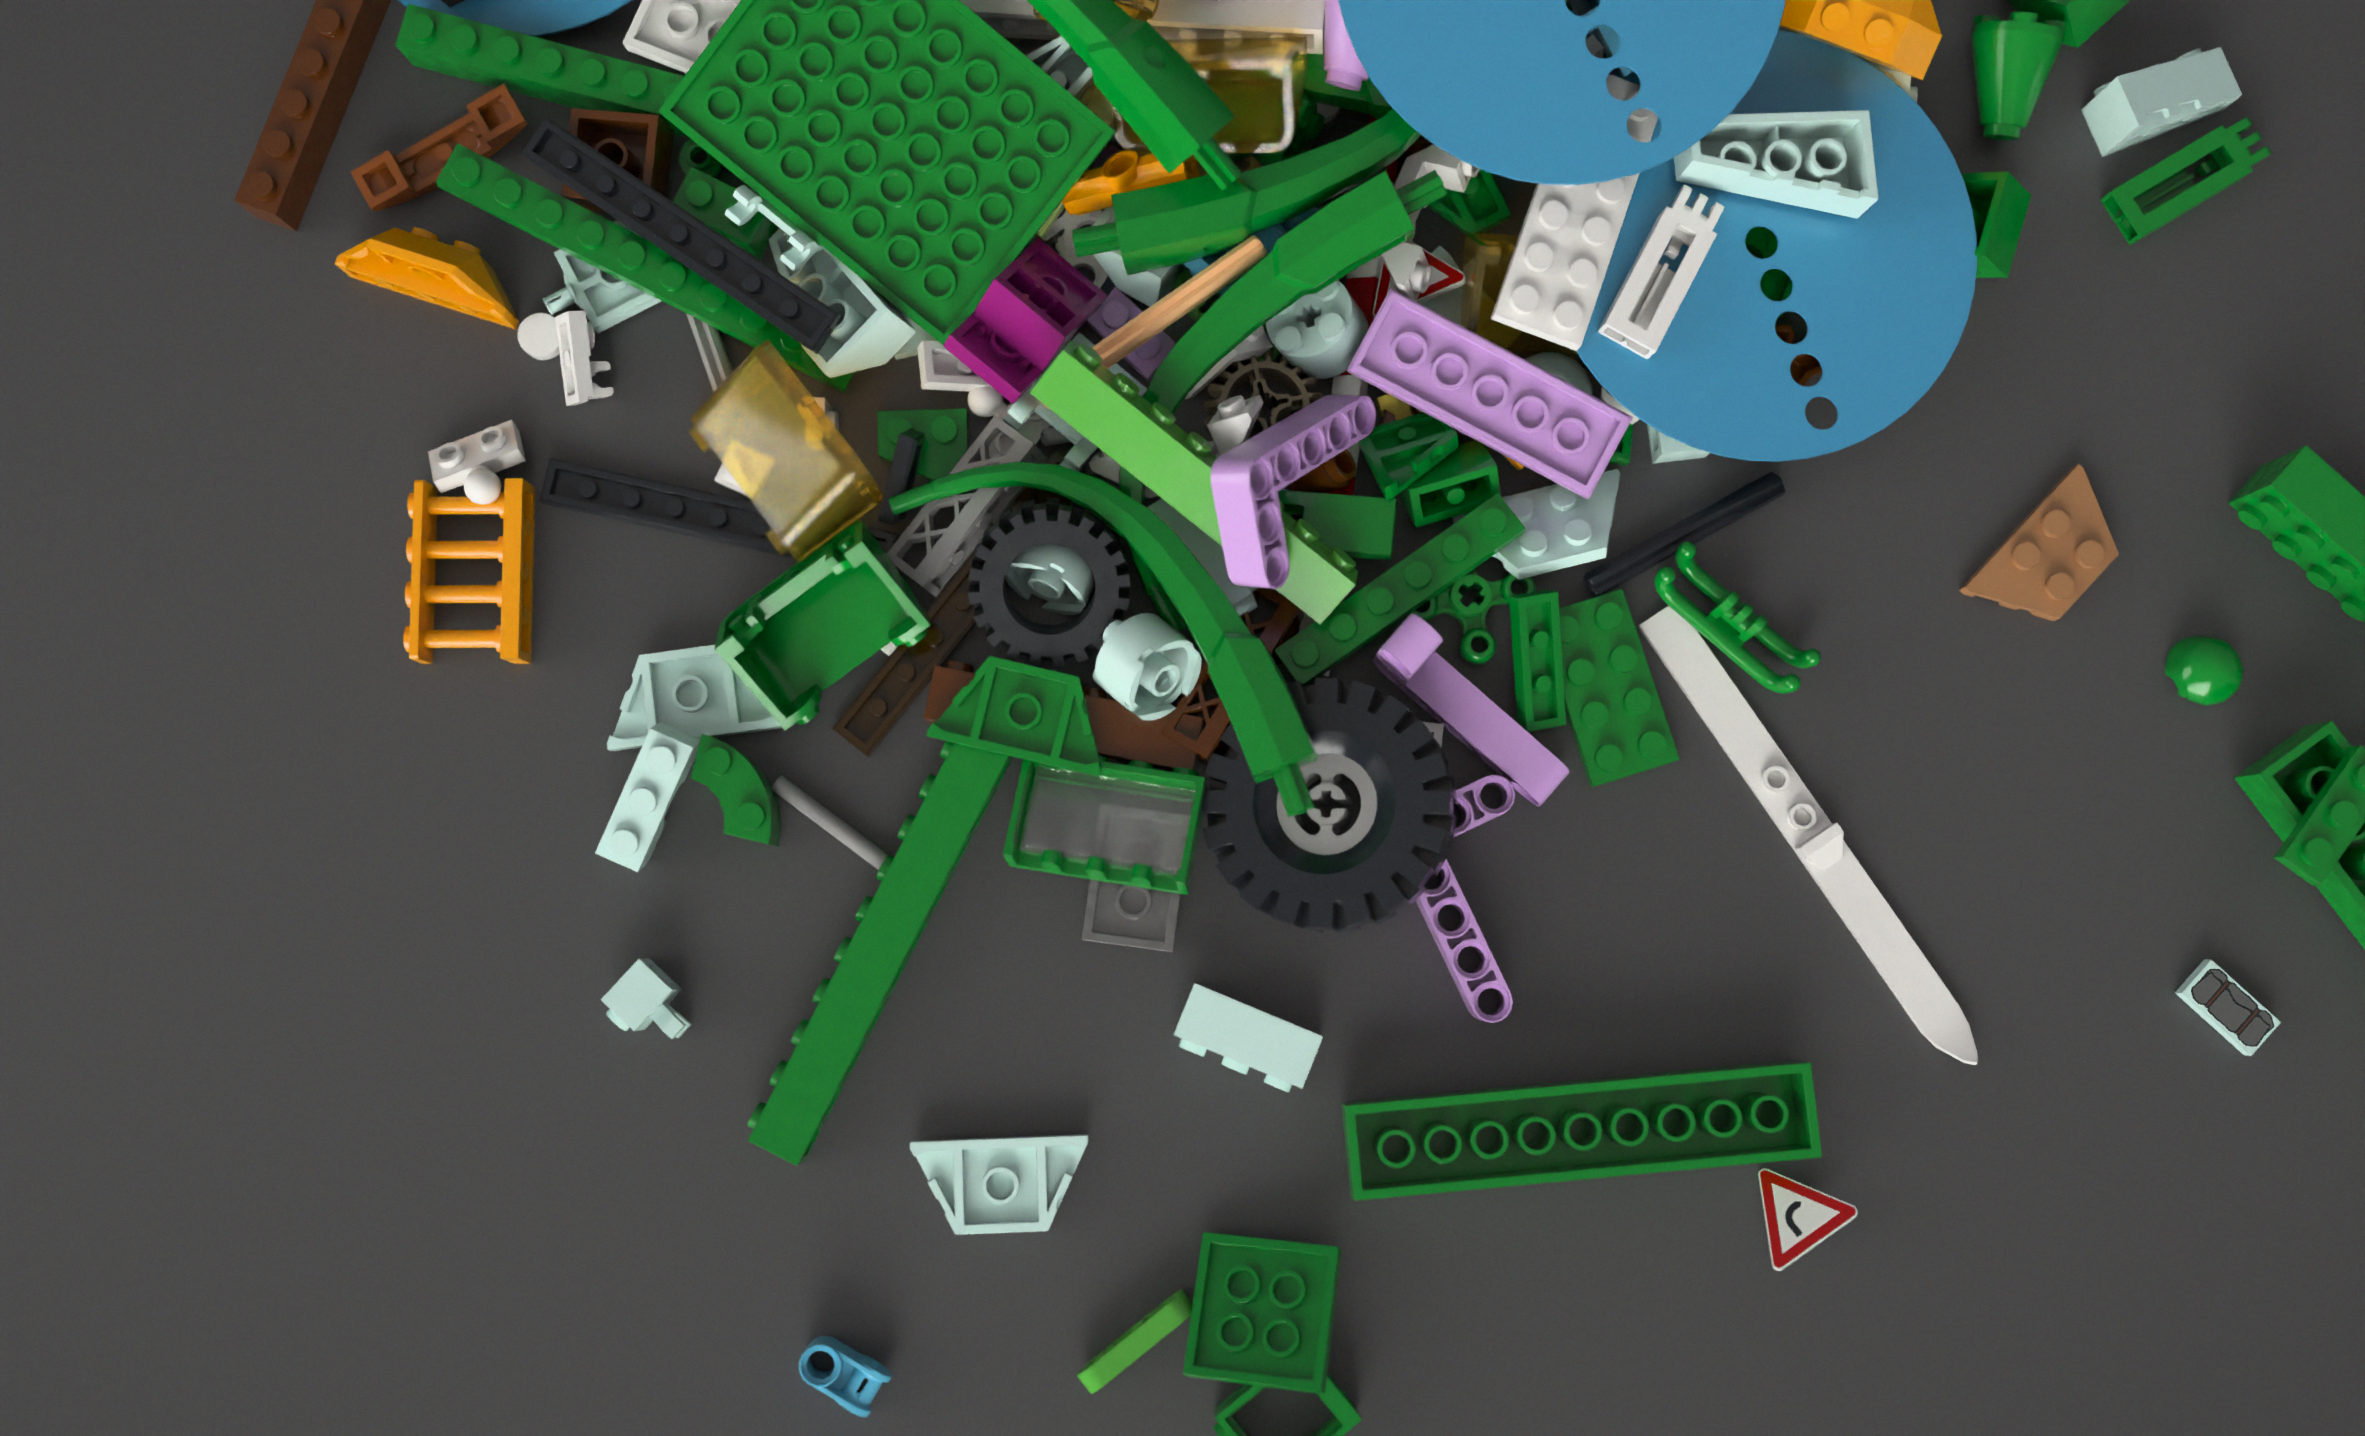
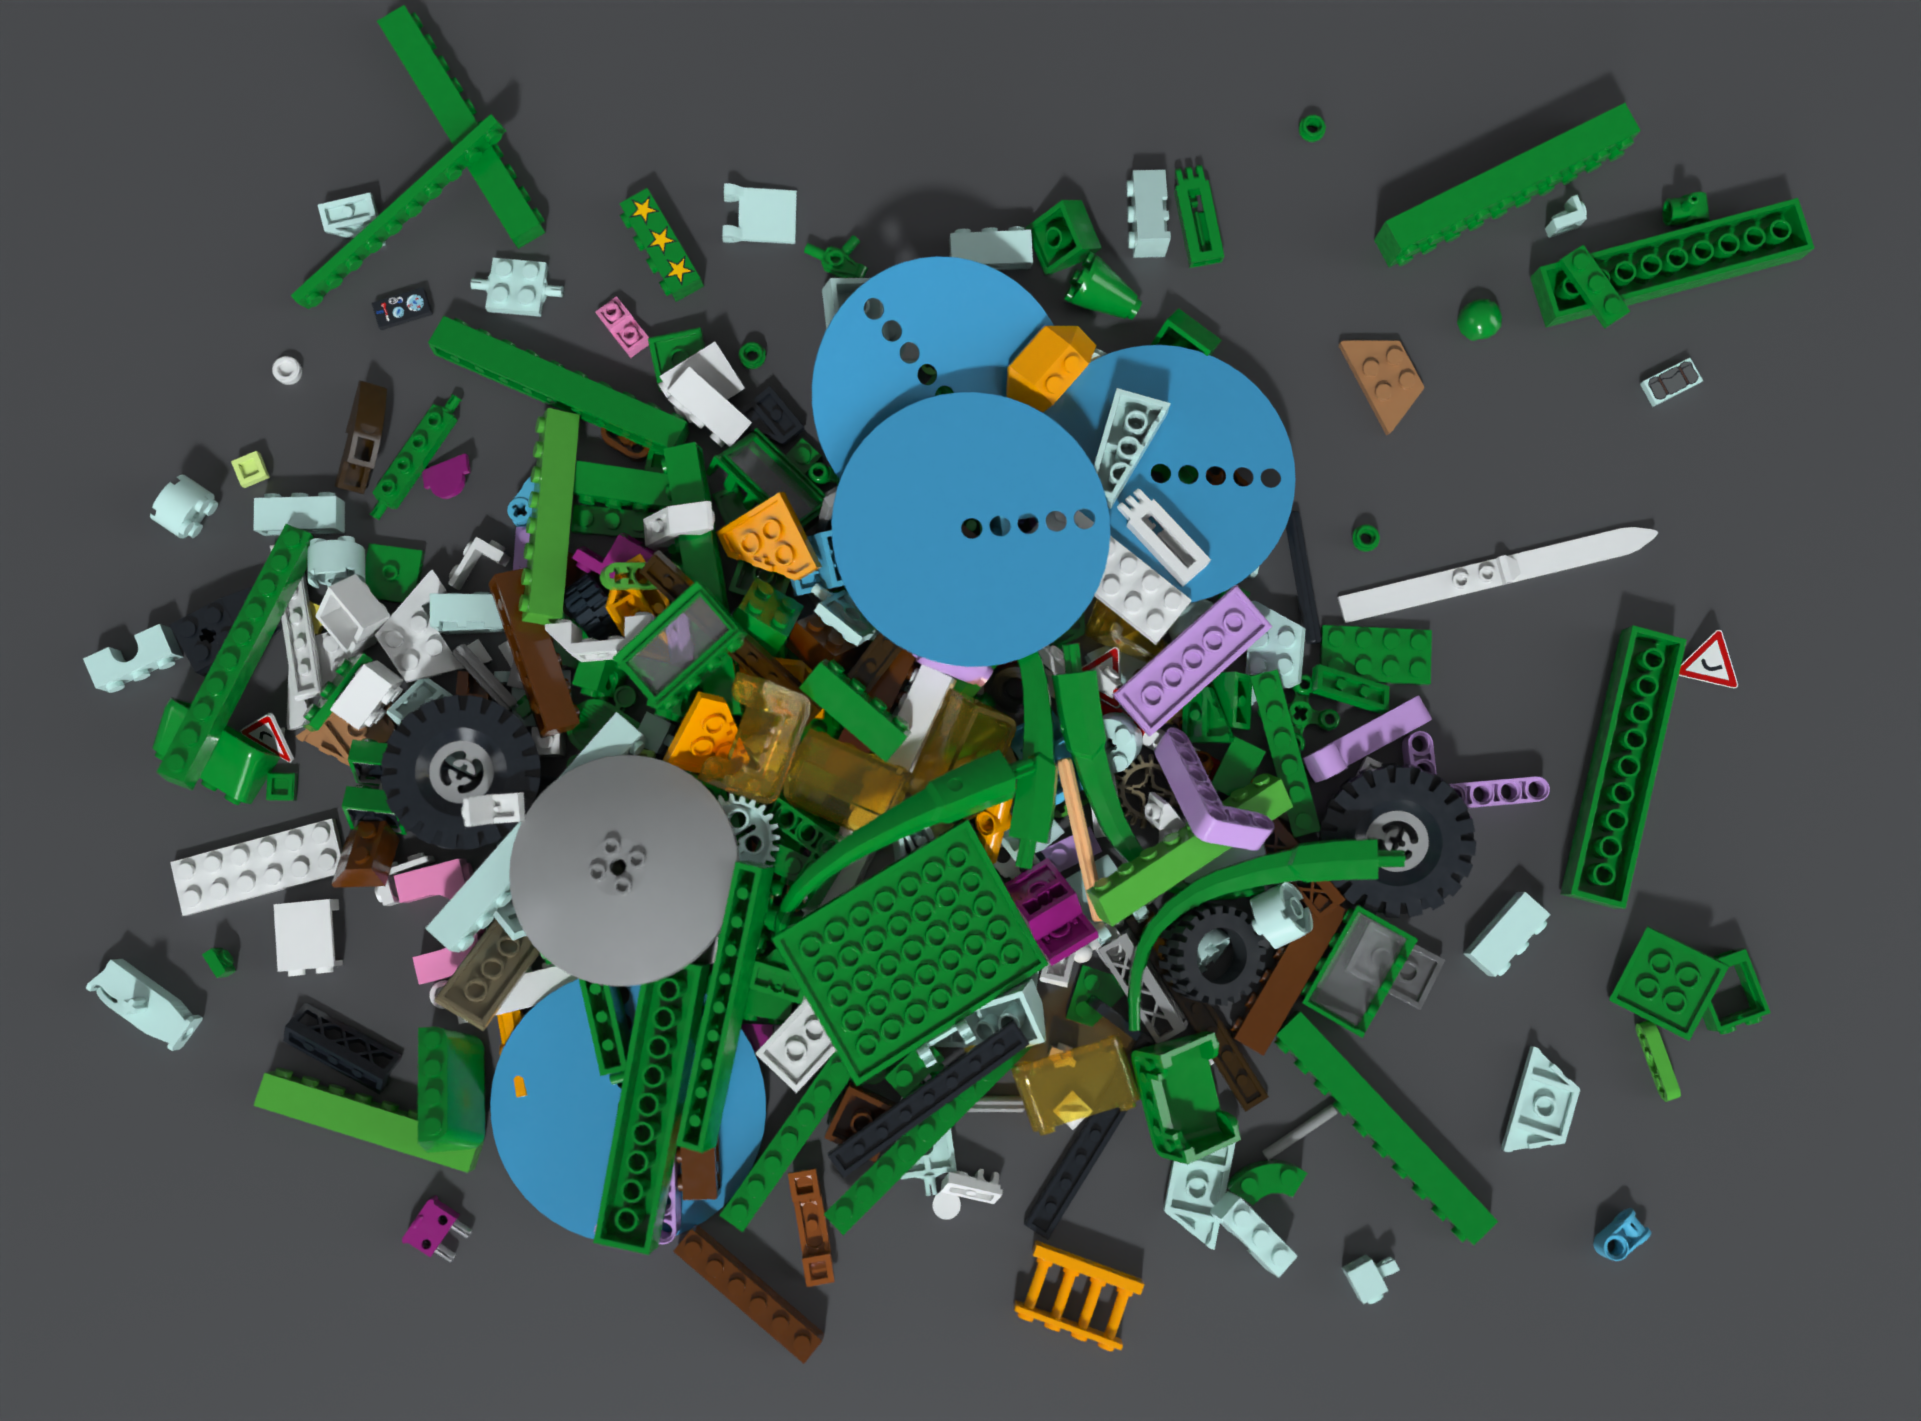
camera: 70 degrees left, 0 degrees up
(432, 272) = (886, 1256): light orange wedge -> none
(476, 460) = (1010, 1270): white plate -> none
(1023, 715) = (1285, 997): green wing -> none
(1731, 623) = (1365, 570): green piece -> none
(1793, 600) = (1371, 532): none -> green plate

